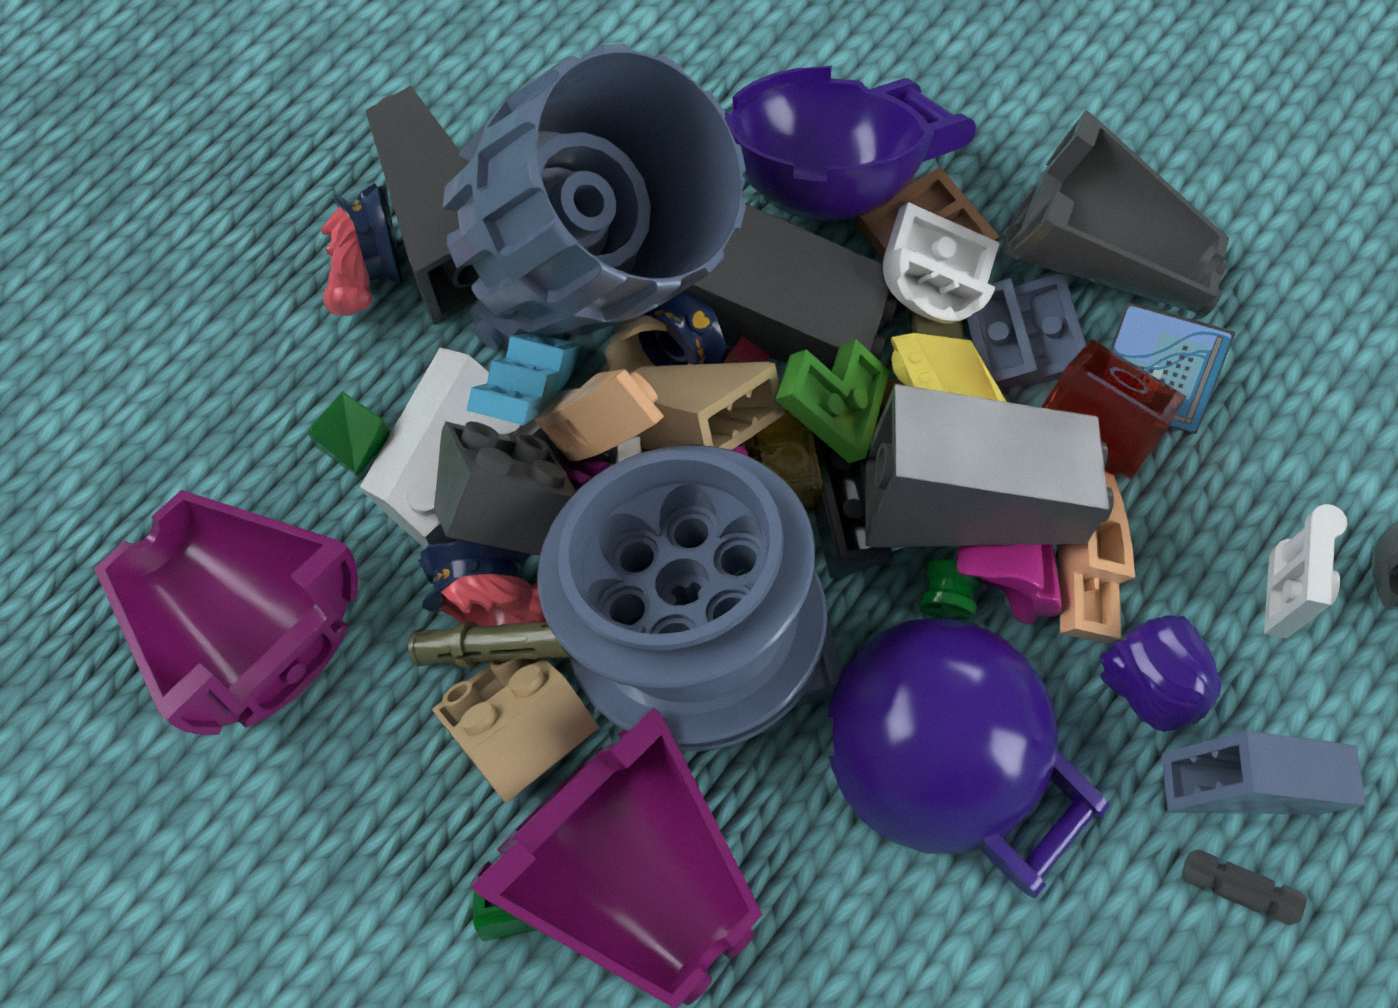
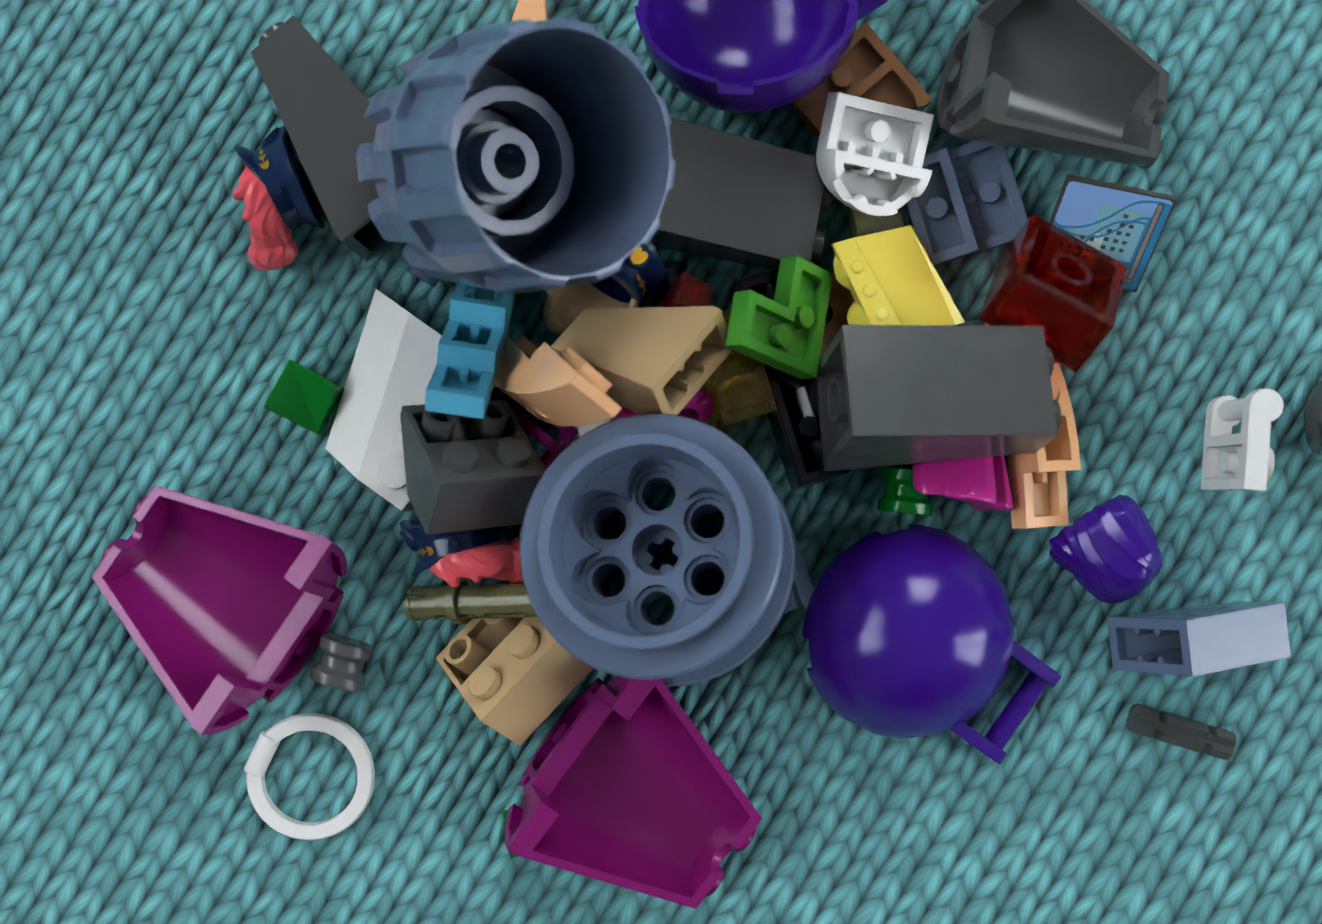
camera: 10 degrees left, 20 degrees up
(227, 786) = (263, 753): none -> white piece
(331, 695) = (341, 662): none -> dark grey wheel

